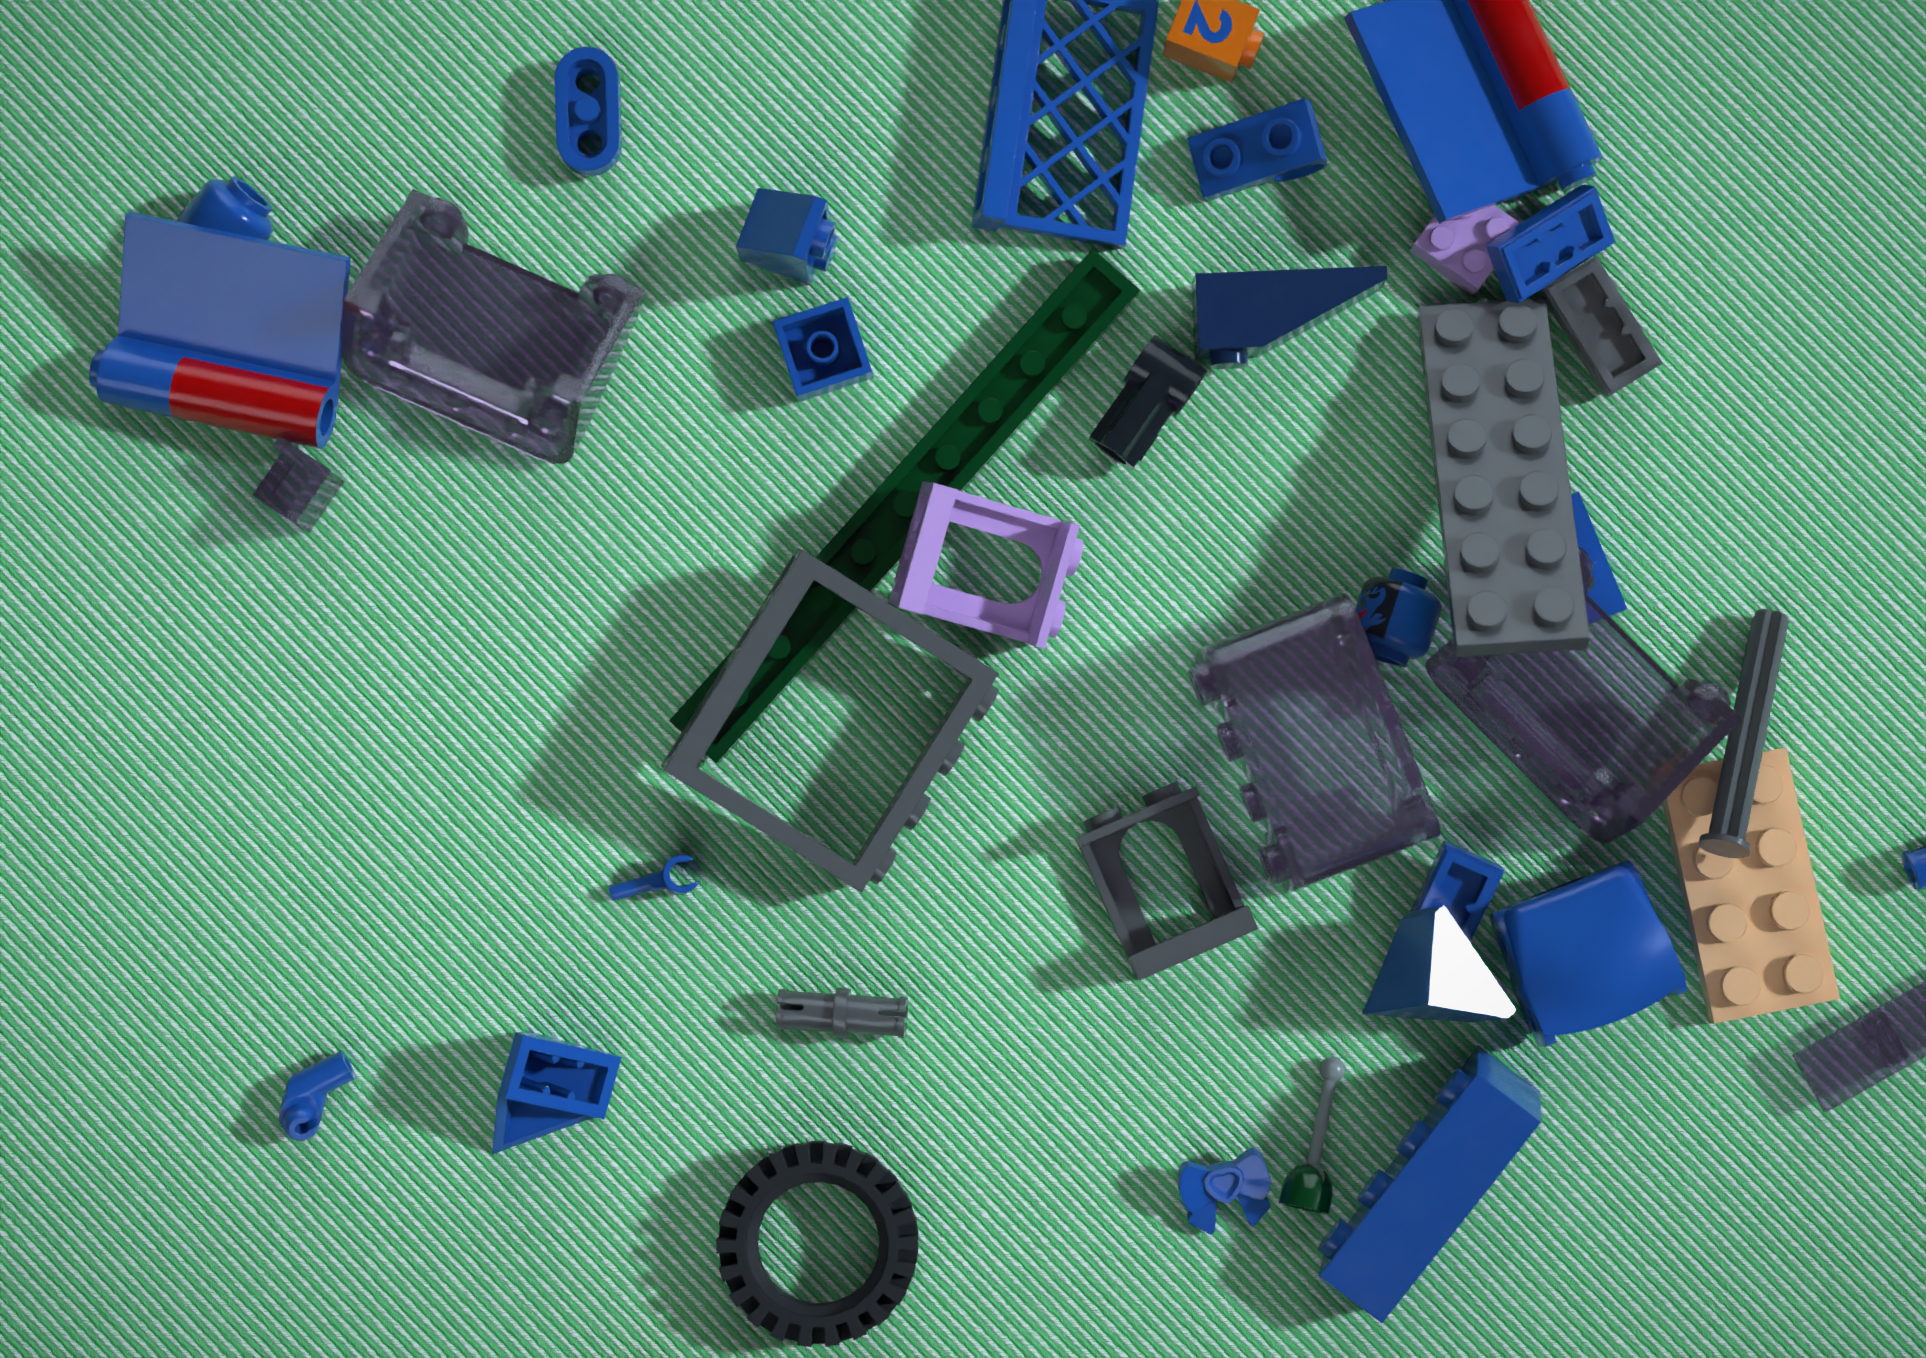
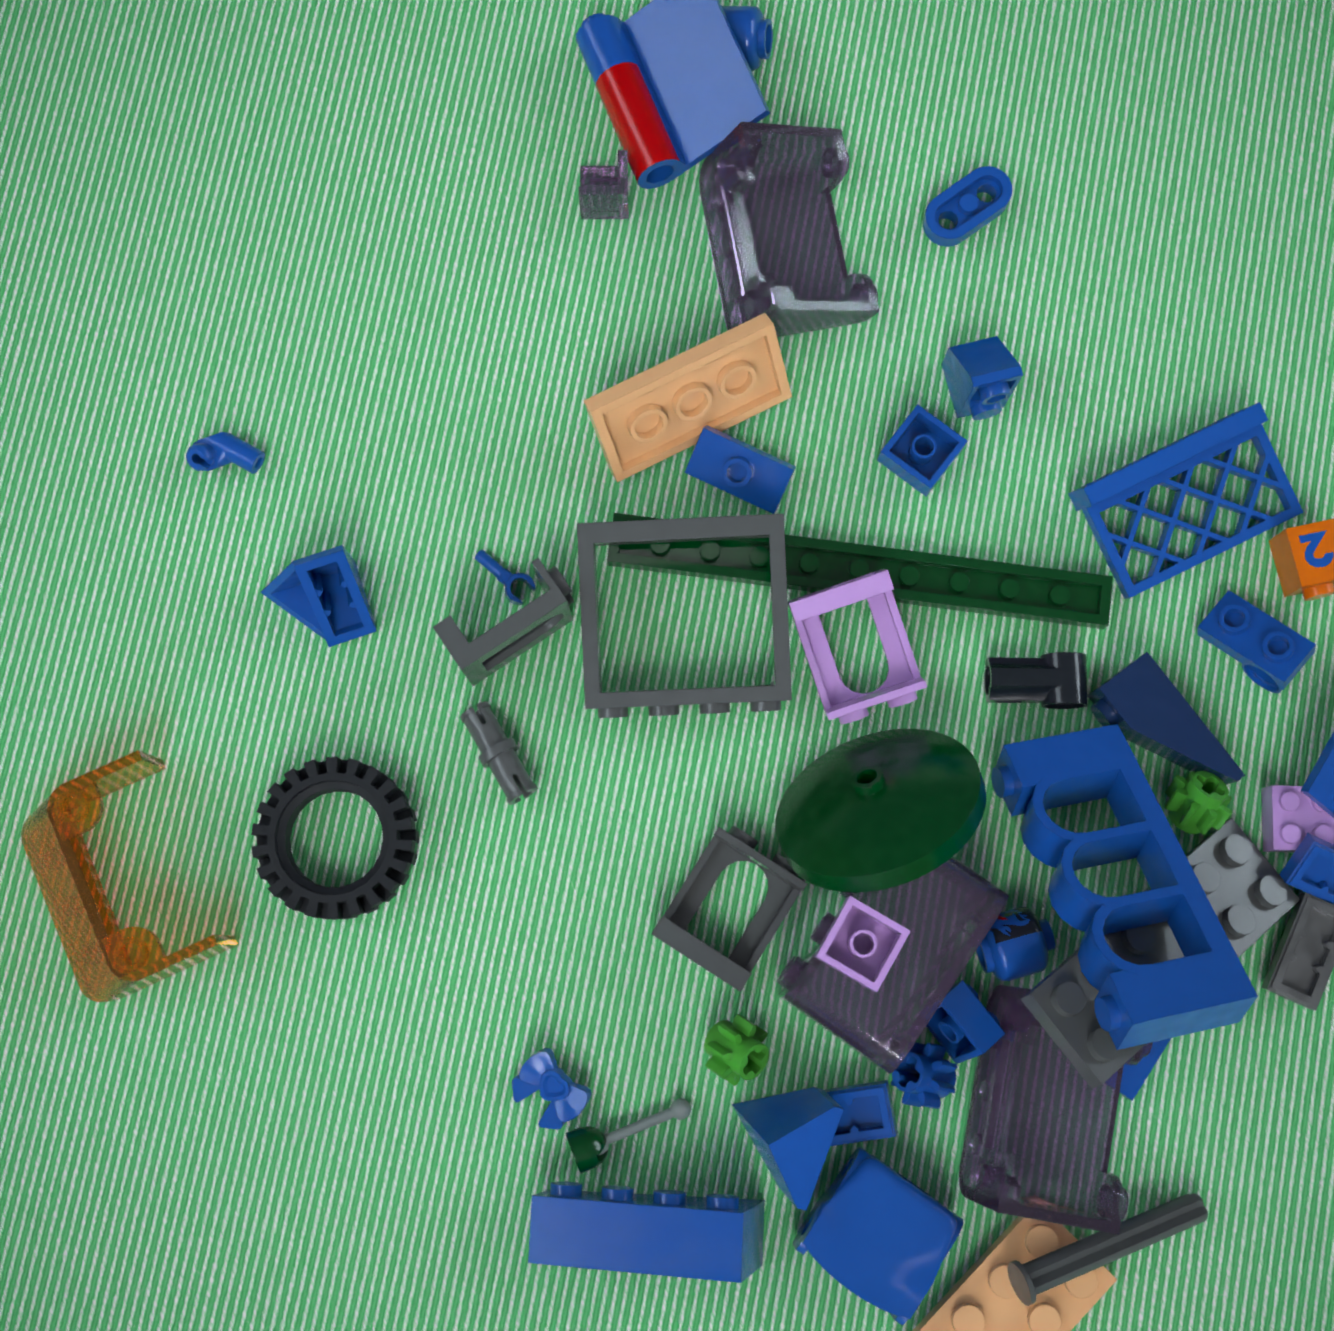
camera: 55 degrees right, 5 degrees down
(602, 557) = (674, 401): none -> light nougat plate
(711, 554) = (740, 469): none -> blue plate
(734, 914) = (514, 633): none -> dark grey panel
(1173, 662) = (881, 810): none -> dark green dish
(1297, 777) = (862, 943): none -> lavender piece
(1312, 972) = (736, 1049): none -> bright green gear
(1381, 330) = (1198, 802): none -> bright green gear
(1441, 725) = (964, 1024): none -> blue piece
(1465, 799) = (925, 1076): none -> blue gear
(1531, 551) = (1133, 1000): none -> blue fence

